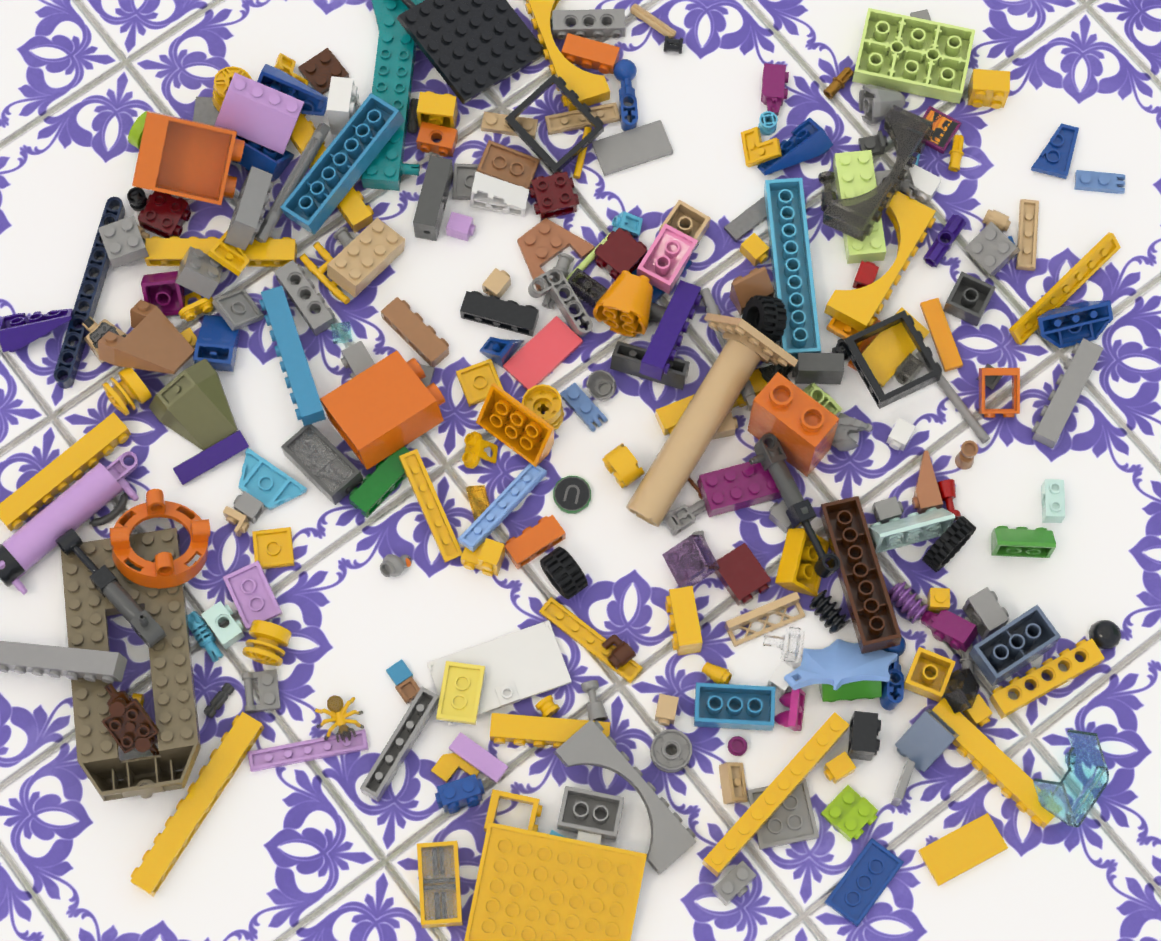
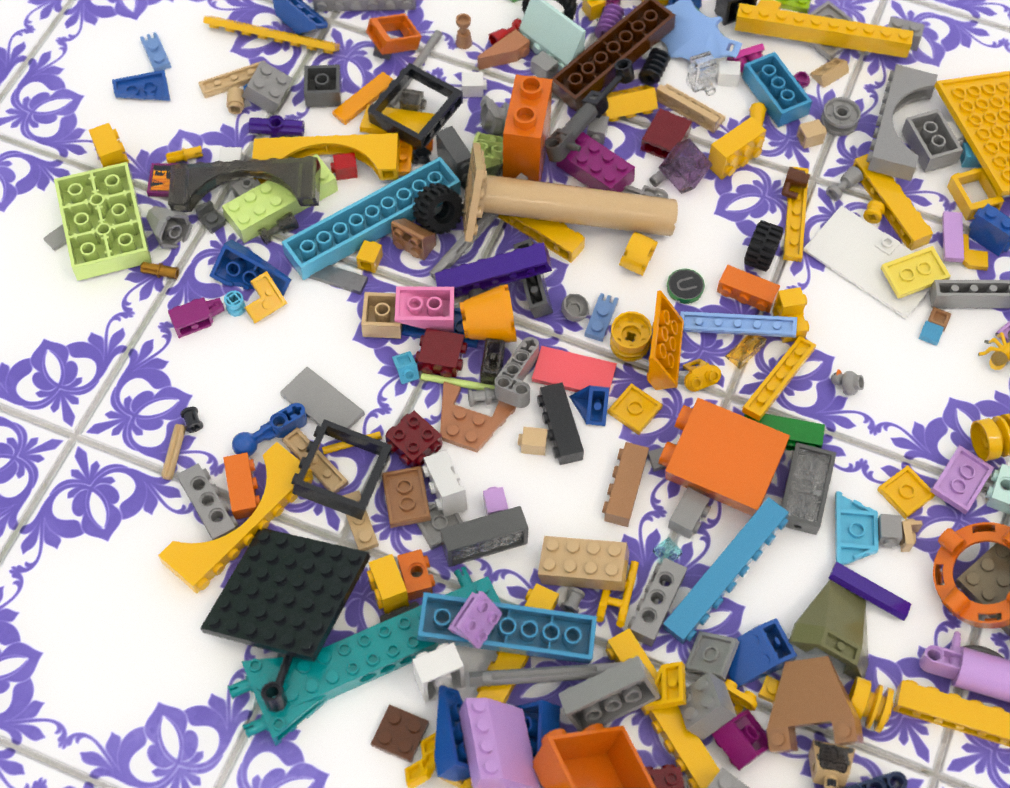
camera: 120 degrees left, 10 degrees down
(353, 131) = (476, 619): none -> lavender bracket

